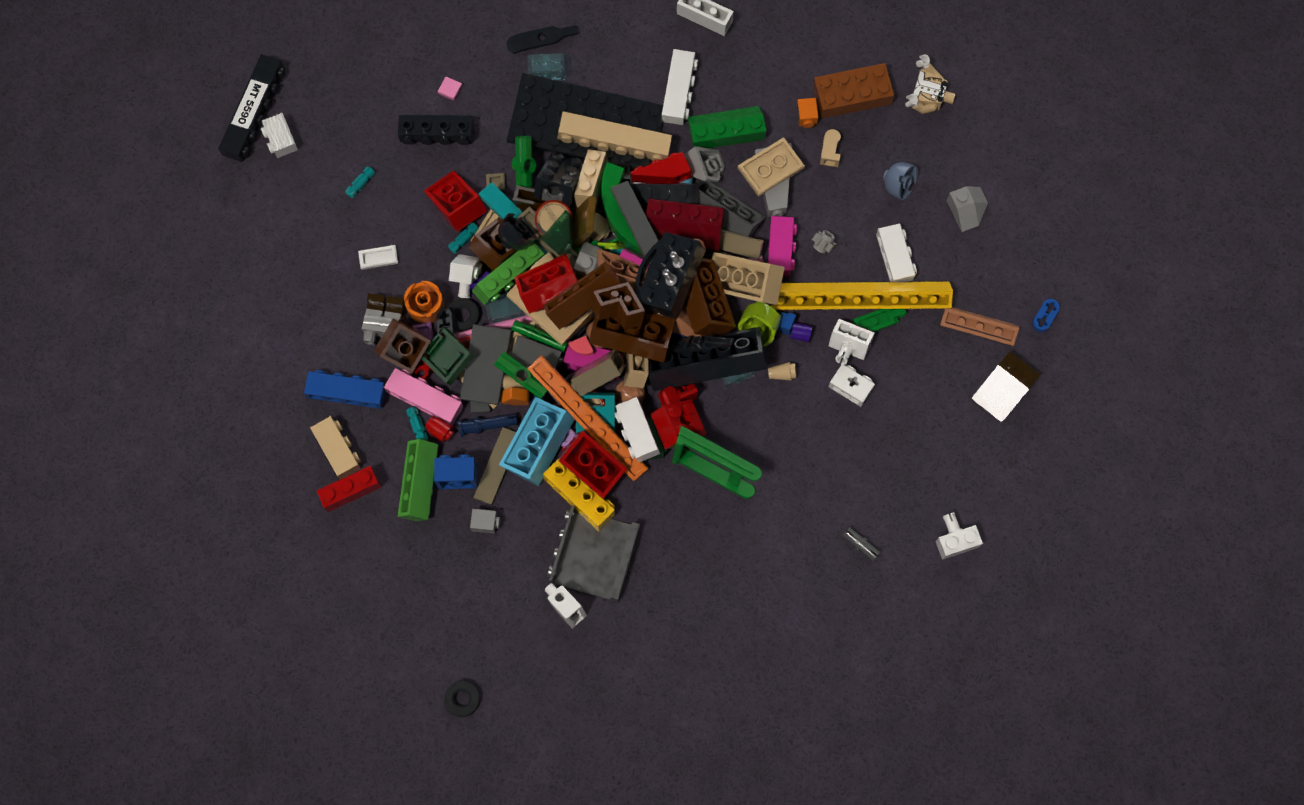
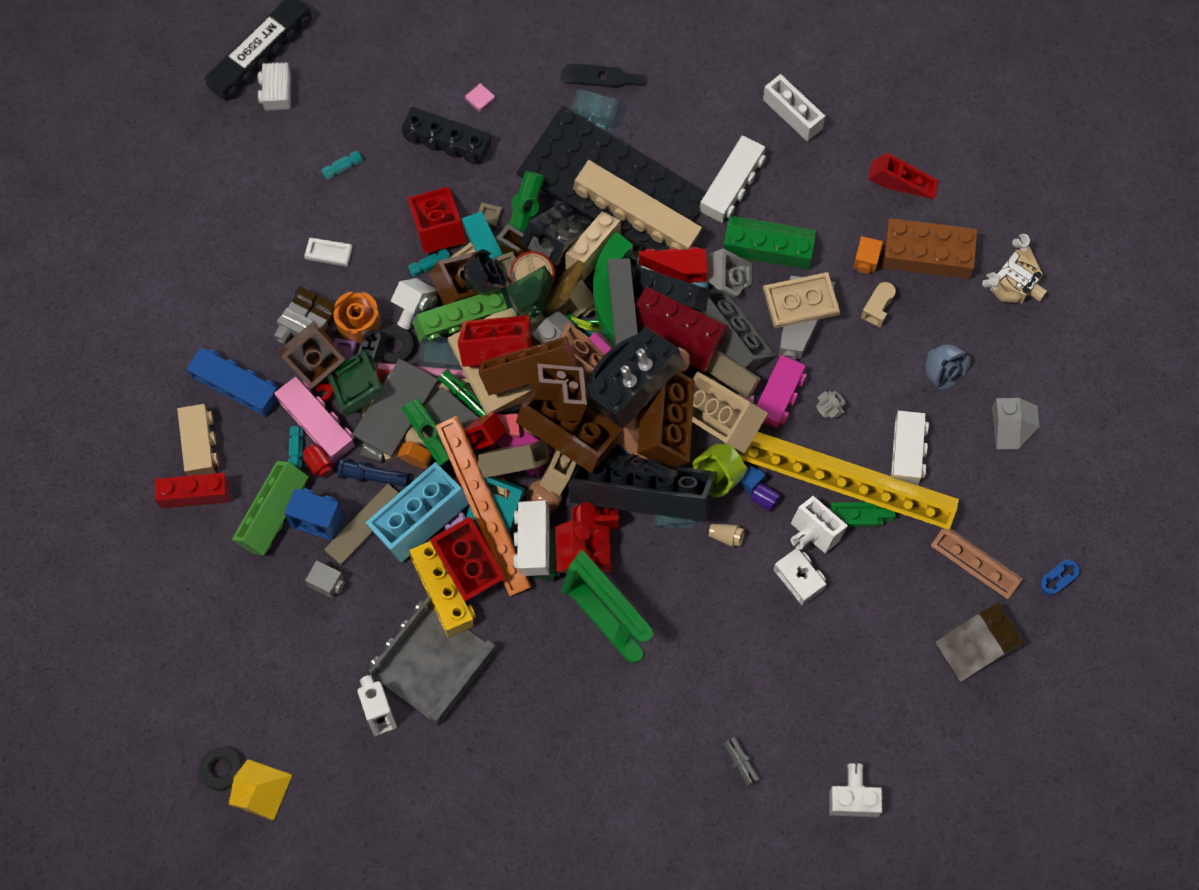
camera: 20 degrees right, 5 degrees down
(499, 703) = (259, 789): none -> yellow slope
(566, 358) = (484, 431): none -> red slope
(809, 40) = (902, 177): none -> red slope

